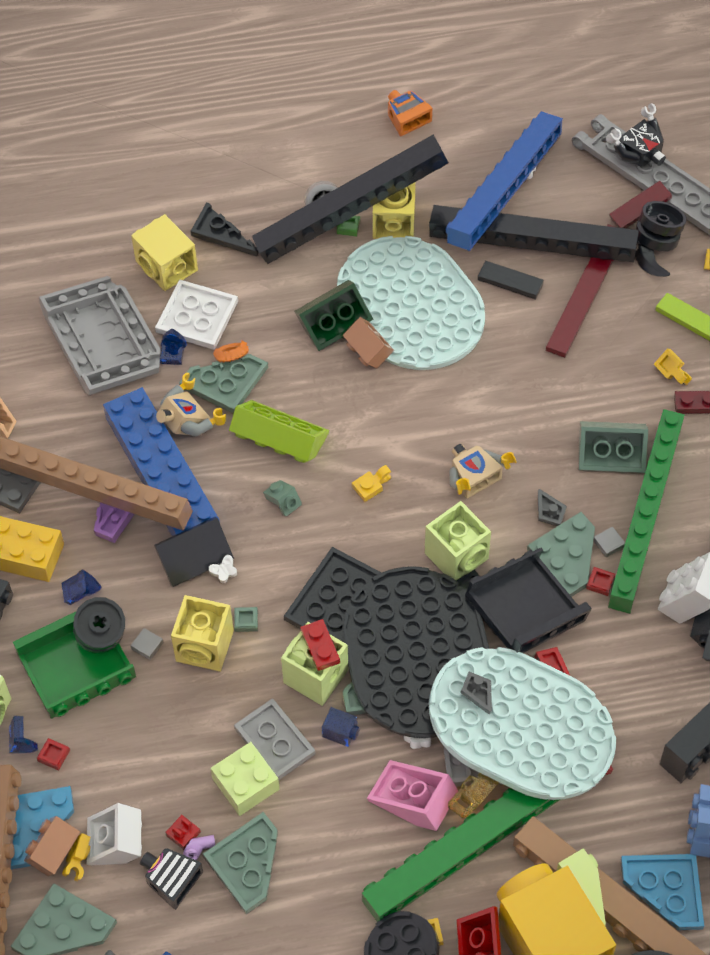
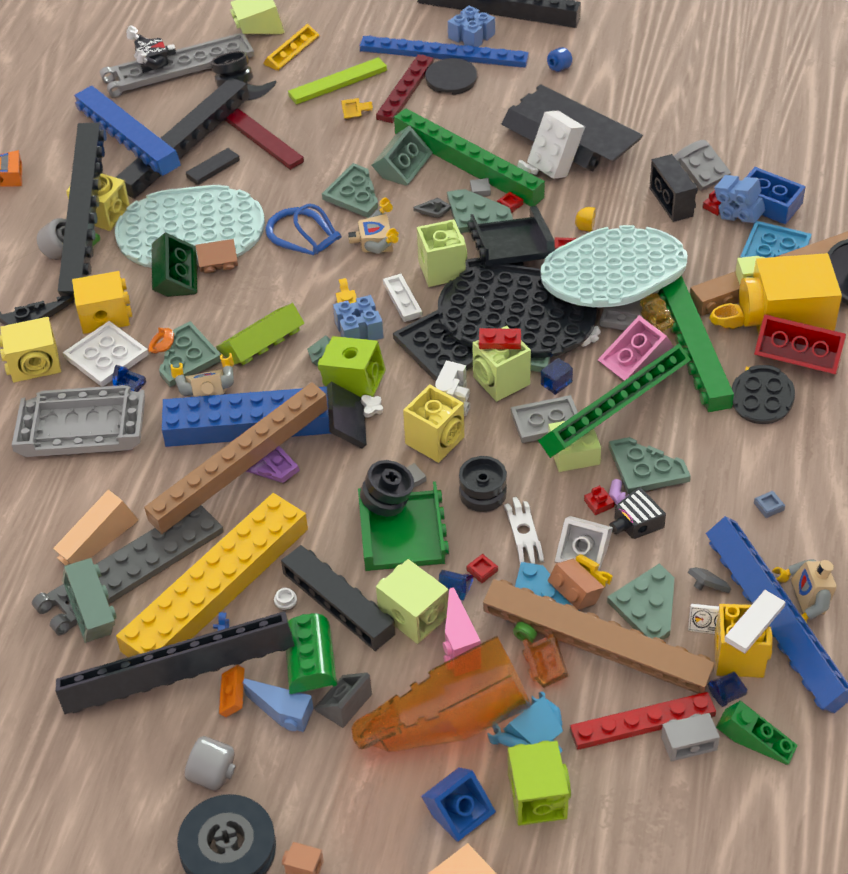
camera: 65 degrees left, 10 degrees down
(79, 586) = (330, 505): clear blue tile -> none
(101, 780) = (524, 540): none -> white piece
(151, 711) = (482, 483): none -> black wheel
(252, 277) = (101, 300): none -> yellow brick
(254, 528) = (352, 365): none -> lime brick
(265, 629) = (454, 383): none -> white hips
(302, 794) = (613, 401): none -> green brick
(334, 508) = (358, 319): none -> medium blue brick
(392, 535) = (402, 297): none -> white plate
(426, 389) = (303, 210): none -> blue animal
(478, 691) = (583, 272): dark grey piece -> none
(507, 866) = (727, 316): none -> yellow rock
(536, 422) = (353, 191): none -> sand green plate
(605, 669) = (585, 219): none -> yellow piece
(631, 210) = (201, 76): dark red tile -> none
(661, 575) = (527, 167): none -> white piece

